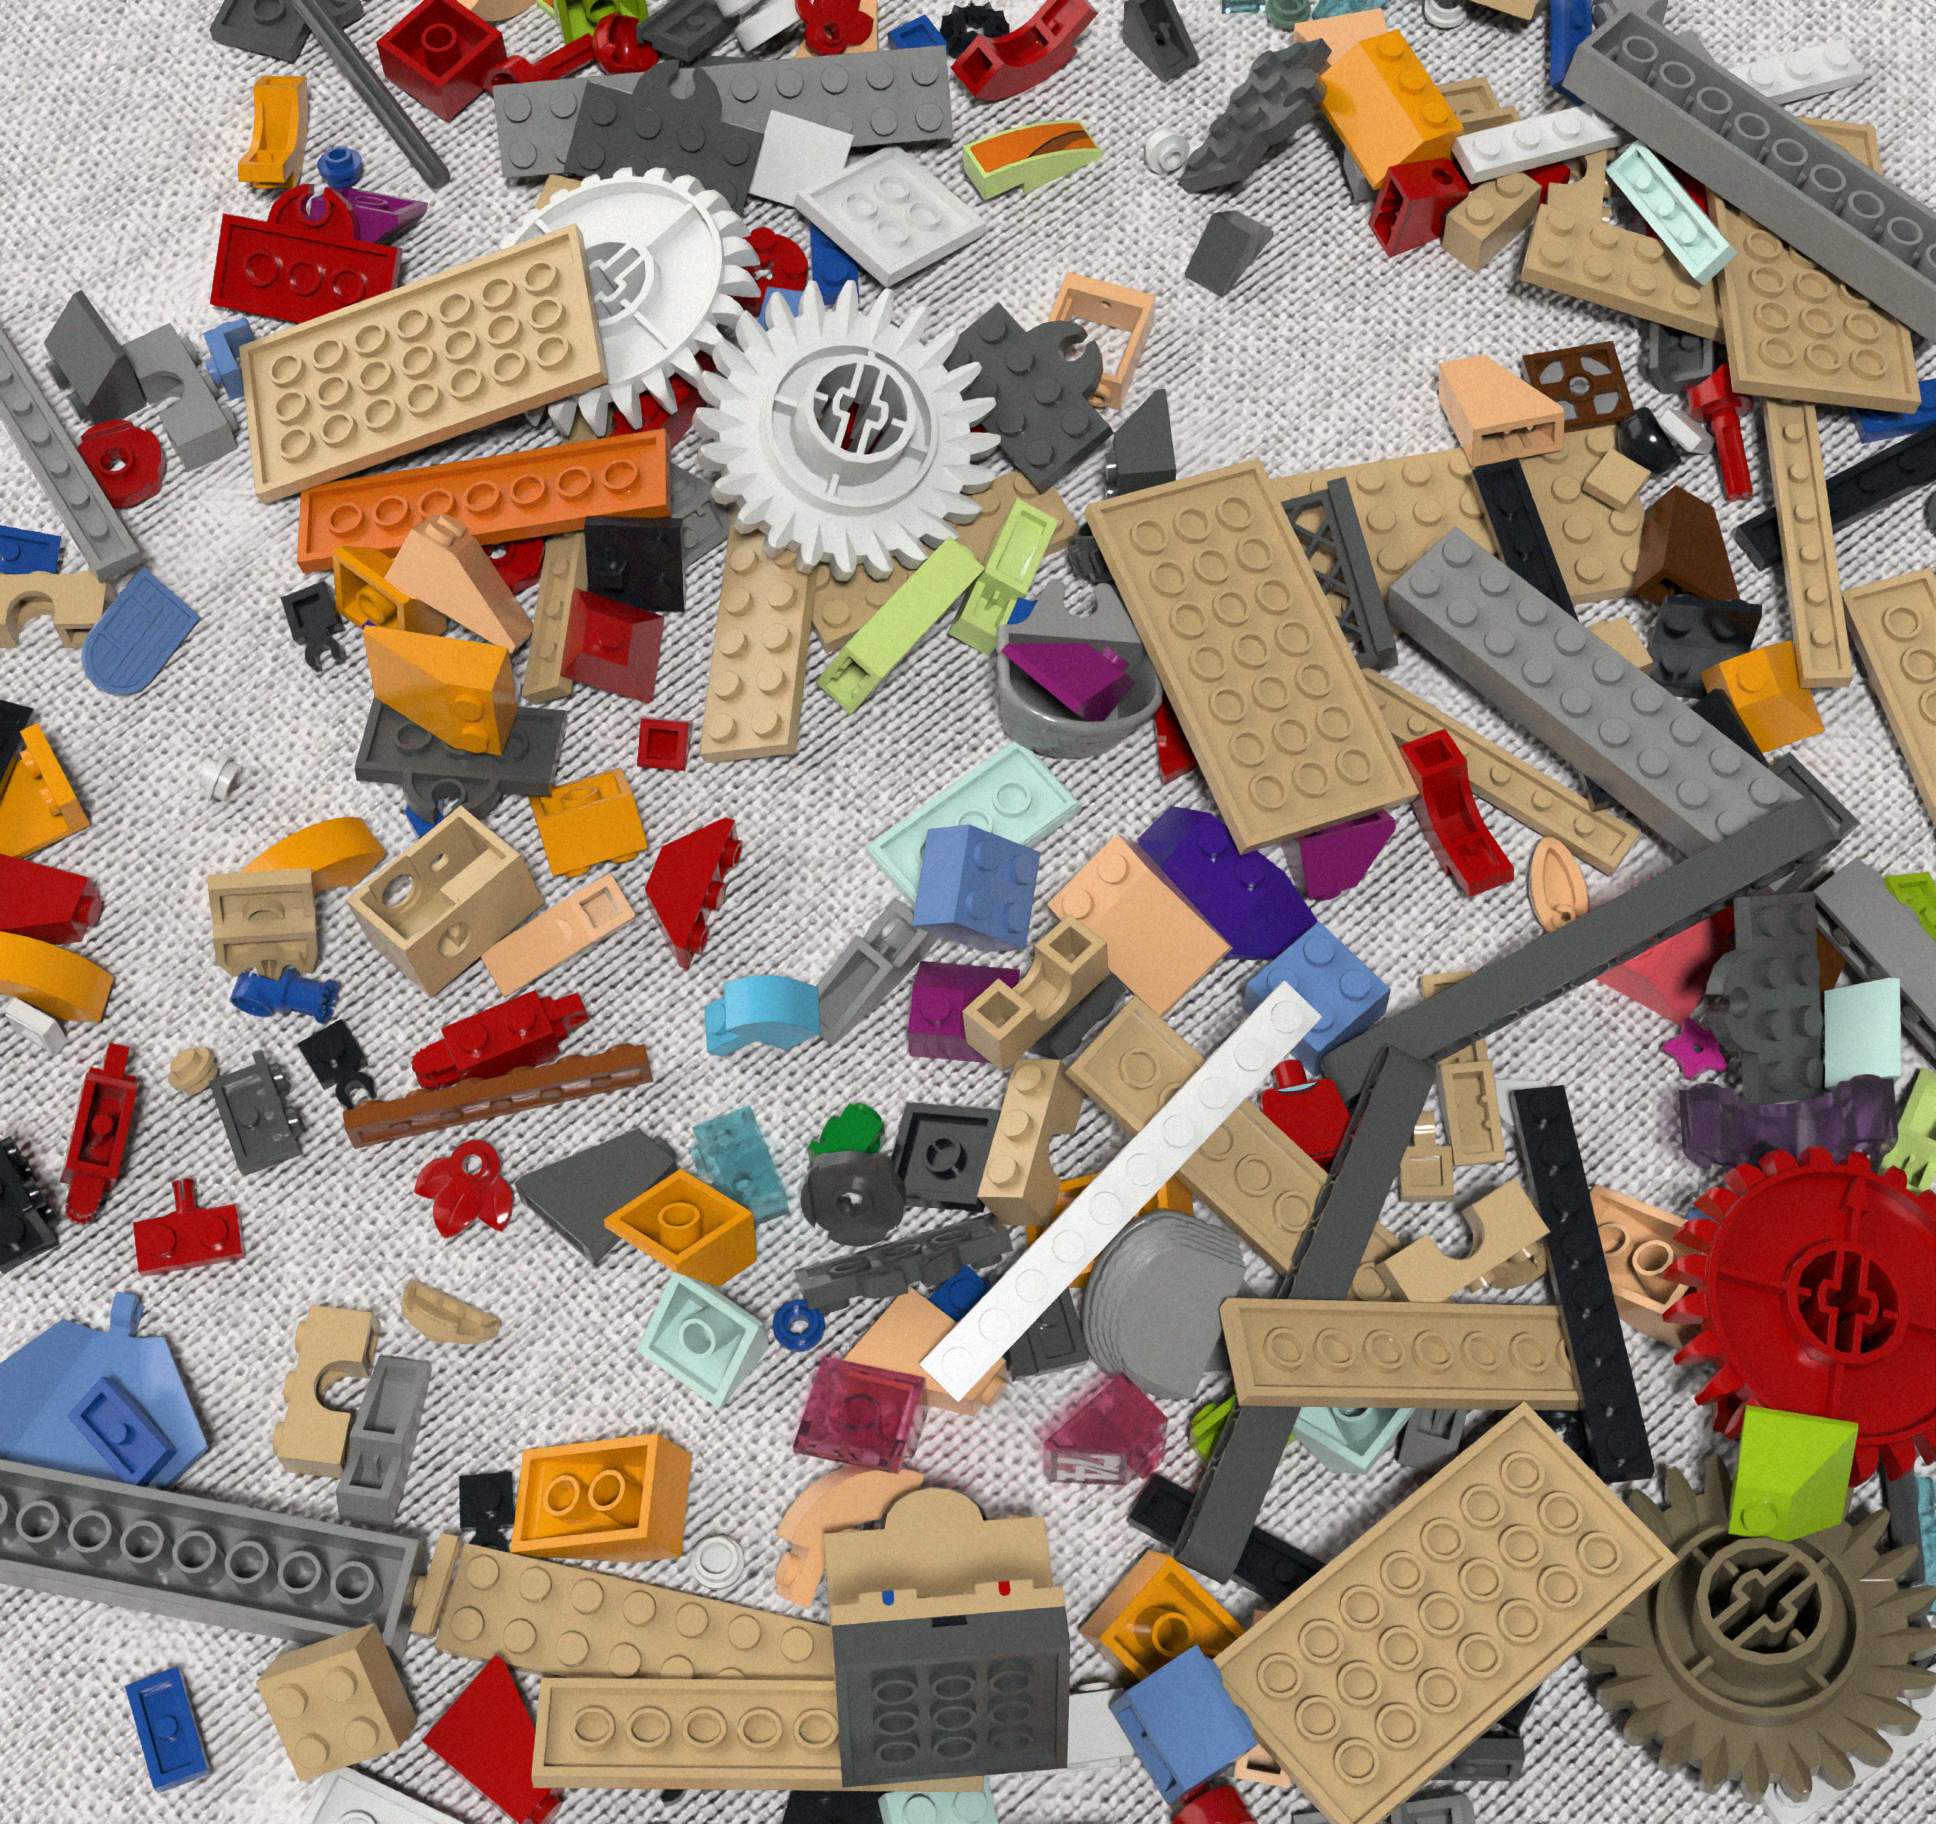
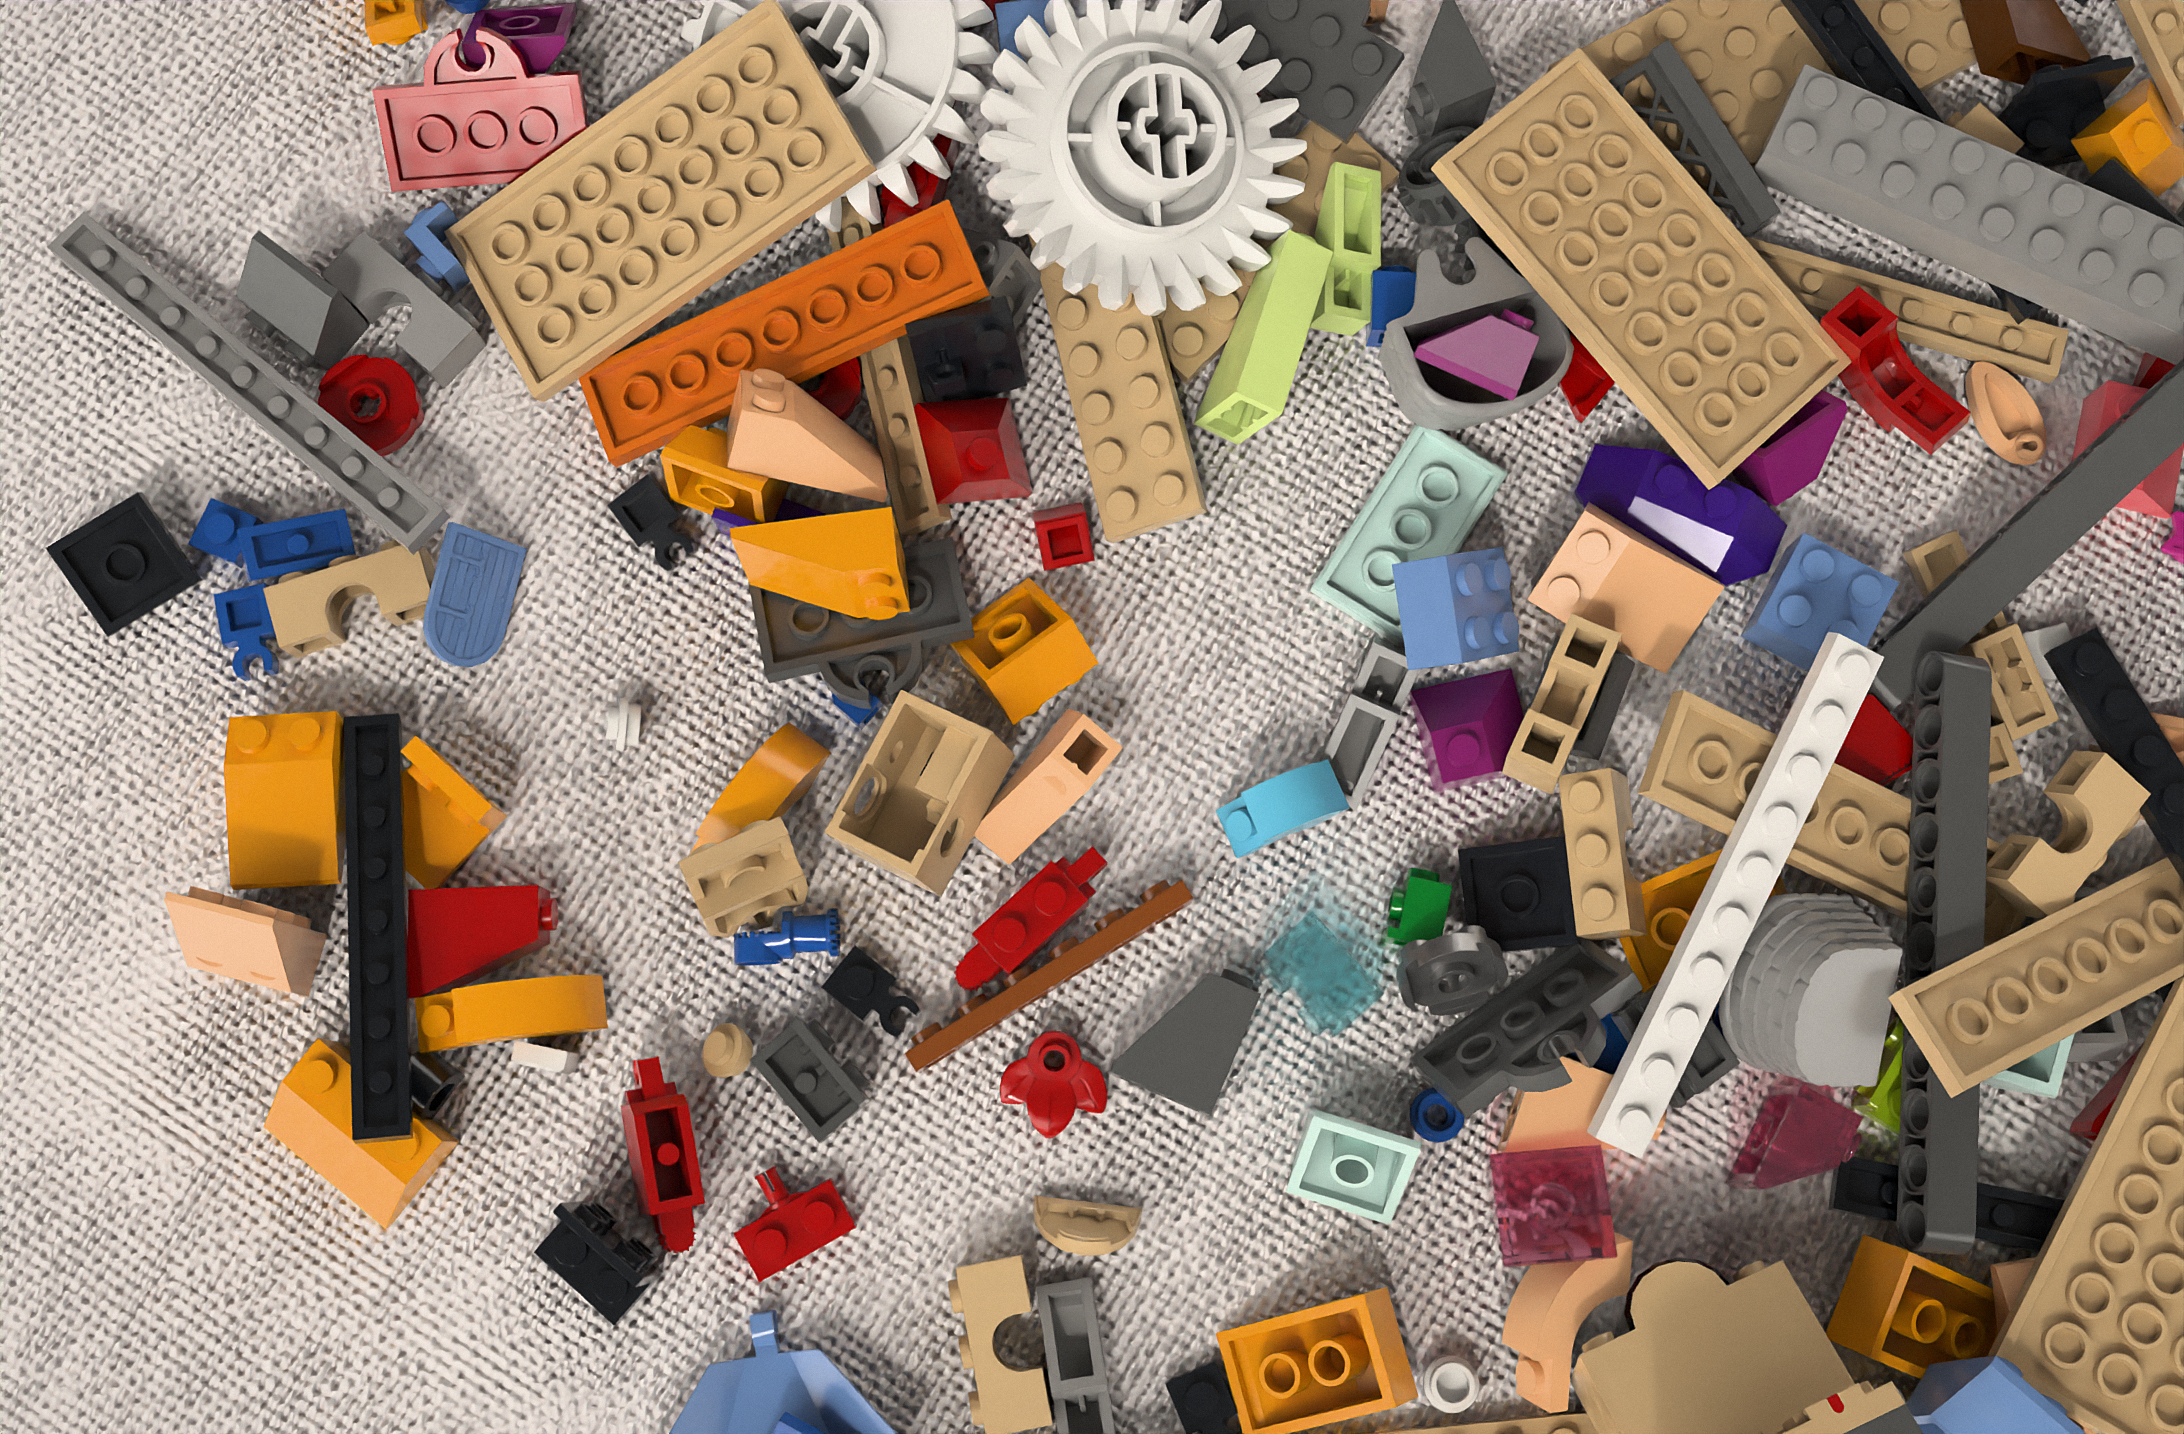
camera: 20 degrees left, 15 degrees up
(689, 1229) = (1305, 1068): light orange slope -> none
(690, 885) = (1153, 690): red slope -> none

